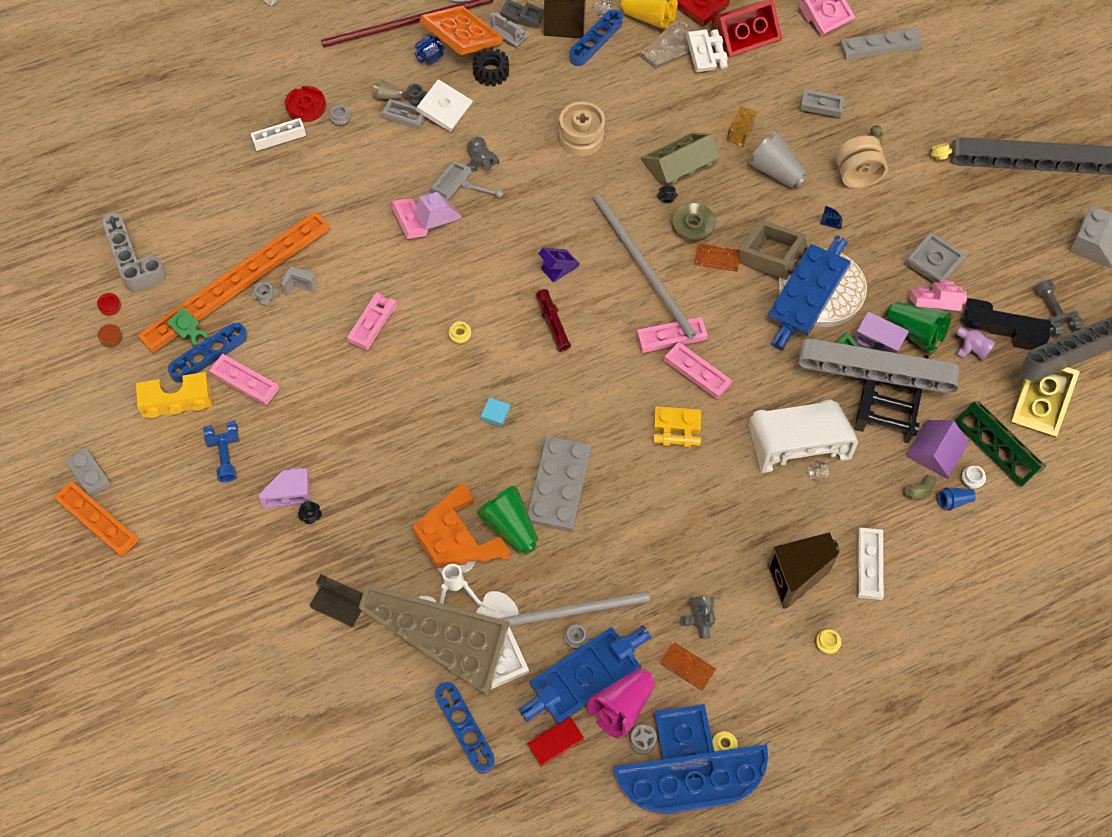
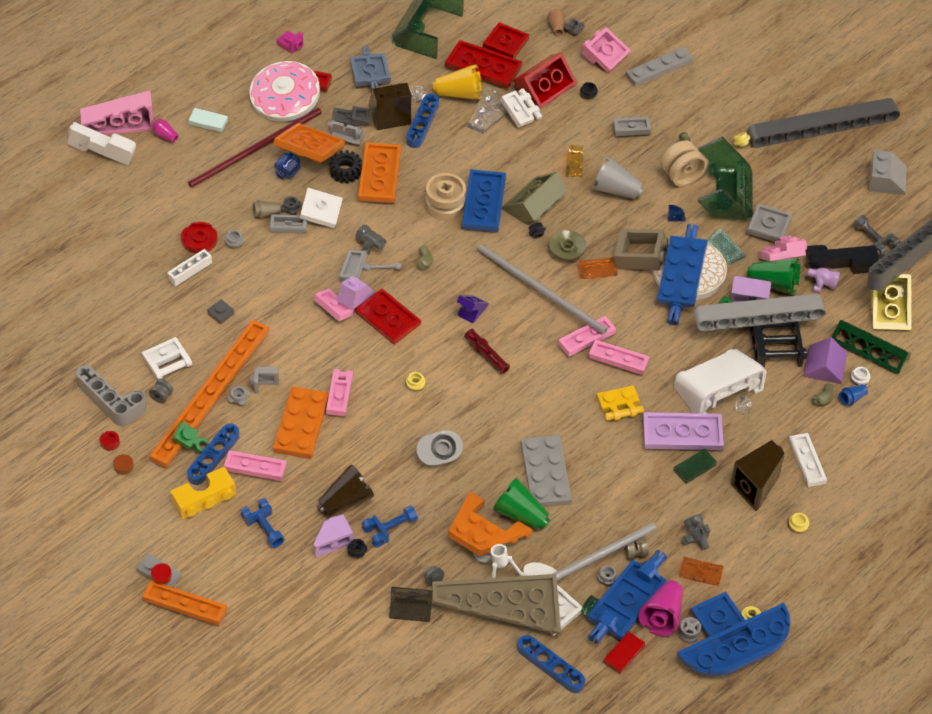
camera: 20 degrees left, 10 degrees down
(83, 477) = (161, 573): none -> red tile
(184, 264) = (161, 390): none -> dark grey wheel
(207, 223) = (163, 354): none -> white plate
(289, 192) = (220, 311): none -> dark grey plate
(316, 344) = (301, 422): none -> orange plate
(322, 442) = (345, 492): none -> dark brown cone
(341, 508) = (409, 514): none -> blue bar
(378, 573) = (433, 574): none -> dark grey plate
(447, 421) = (439, 447): none -> light grey piece
(463, 248) = (388, 316): none -> red tile
(495, 412) = (471, 433): medium azure tile -> none
(524, 83) = (379, 172): none -> orange plate
(533, 194) = (426, 259): none -> olive arm
(537, 668) = (589, 605): none -> clear green tile
(623, 144) = (484, 200): none -> blue plate
(627, 615) = (637, 548): none -> dark tan wheel
(733, 530) = (695, 466): none -> clear green tile
(735, 483) = (683, 431): none -> lavender plate
(791, 50) = (588, 90): none -> black plate
(875, 273) = (726, 246): none -> clear light blue slope
(913, 199) = (733, 182): none -> clear green windscreen

